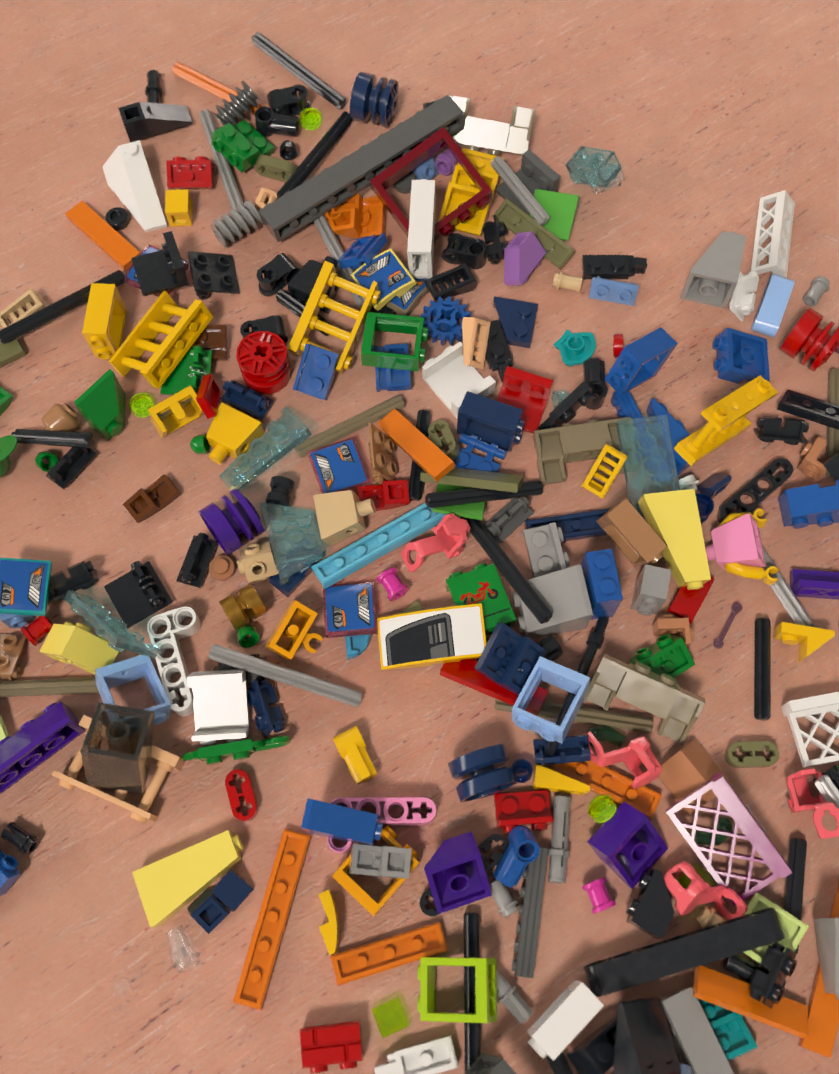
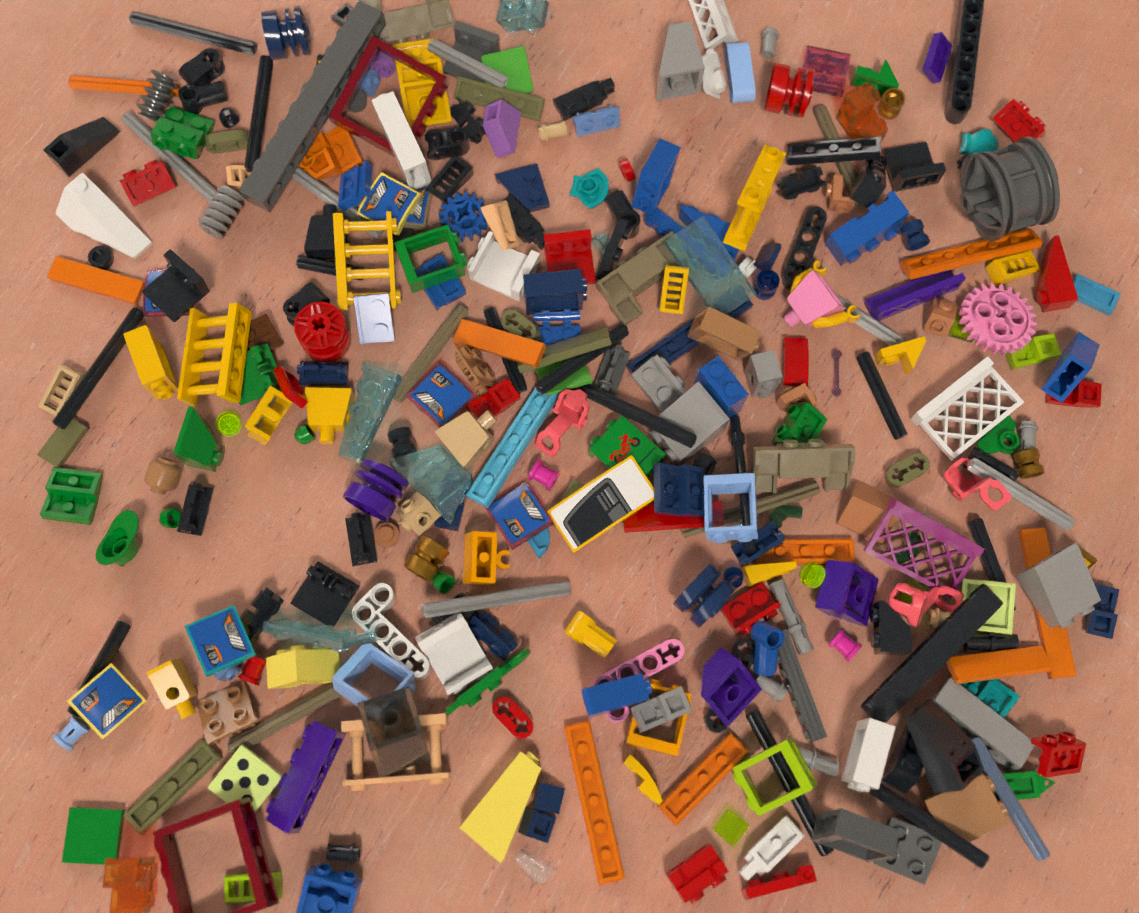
camera: 30 degrees left, 5 degrees up
(54, 438) = (168, 494): black axle -> none
(153, 89) = (60, 113): black pin -> none
(153, 499) = (289, 504): reddish brown slope -> none
(178, 208) = (156, 221): yellow brick -> none
(213, 273) = (225, 270): black hinge -> none
(276, 273) = (286, 244): black piece -> none
(310, 119) = (232, 76): clear neon green tile -> none
(631, 756) = (815, 521): coral piece -> none
(678, 524) = (760, 308): light yellow slope -> none
(740, 356) = (736, 132): blue plate -> none
(780, 967) = (1008, 625): black hinge -> none

